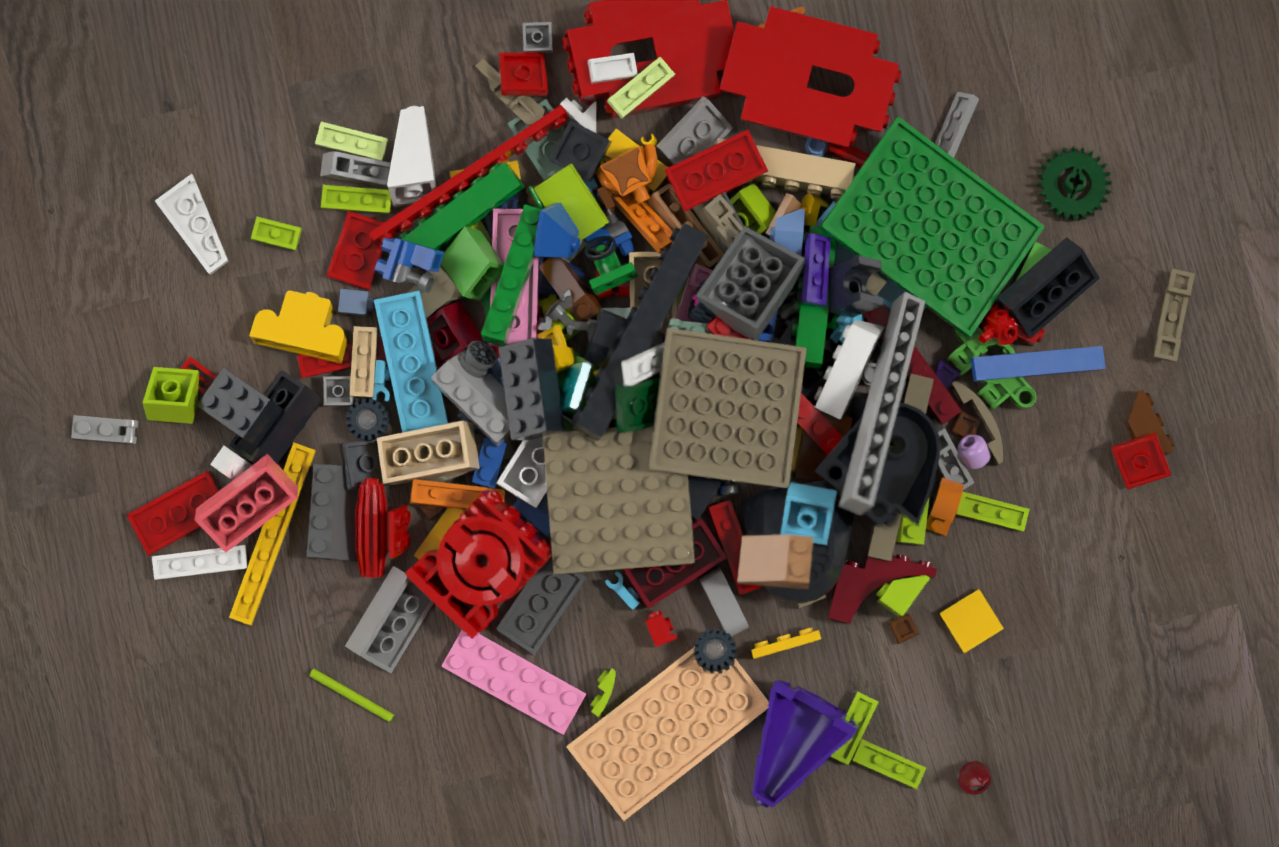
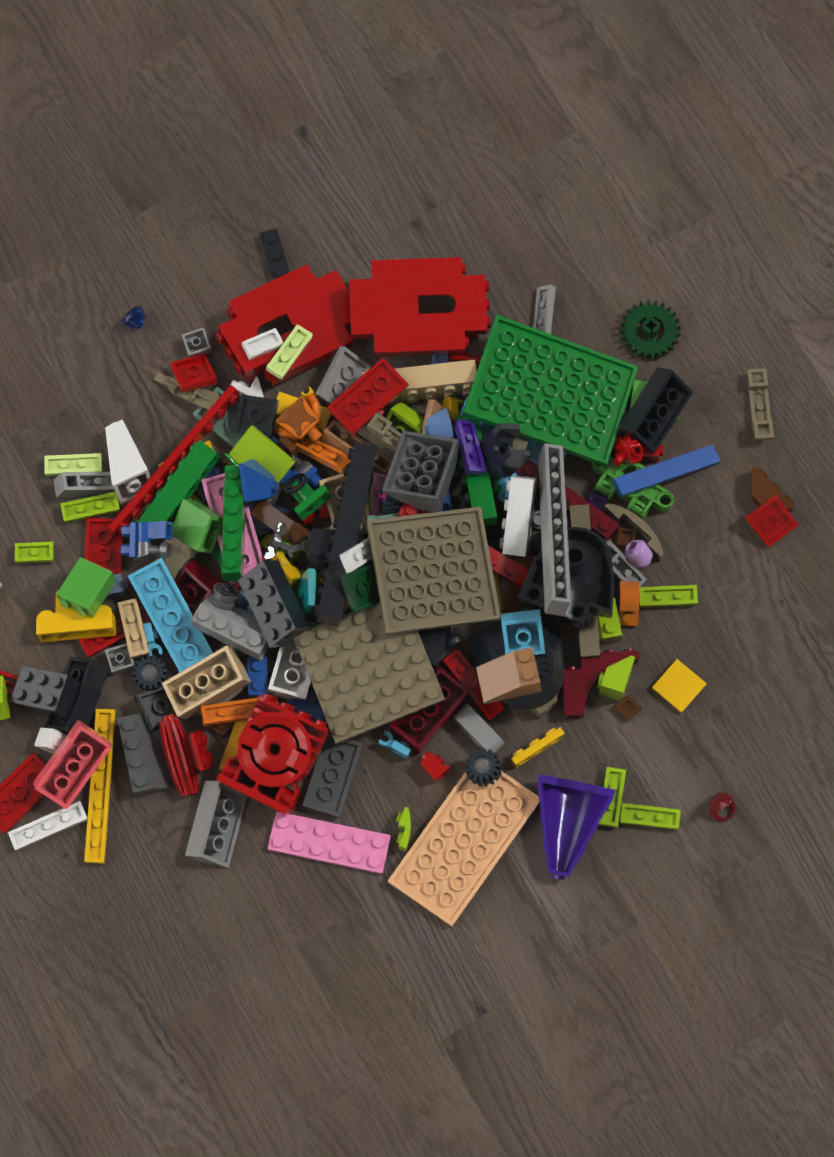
camera: 15 degrees left, 10 degrees down
(321, 299) = (86, 587): none -> bright green brick
(351, 695) = (202, 894): lime bar -> none

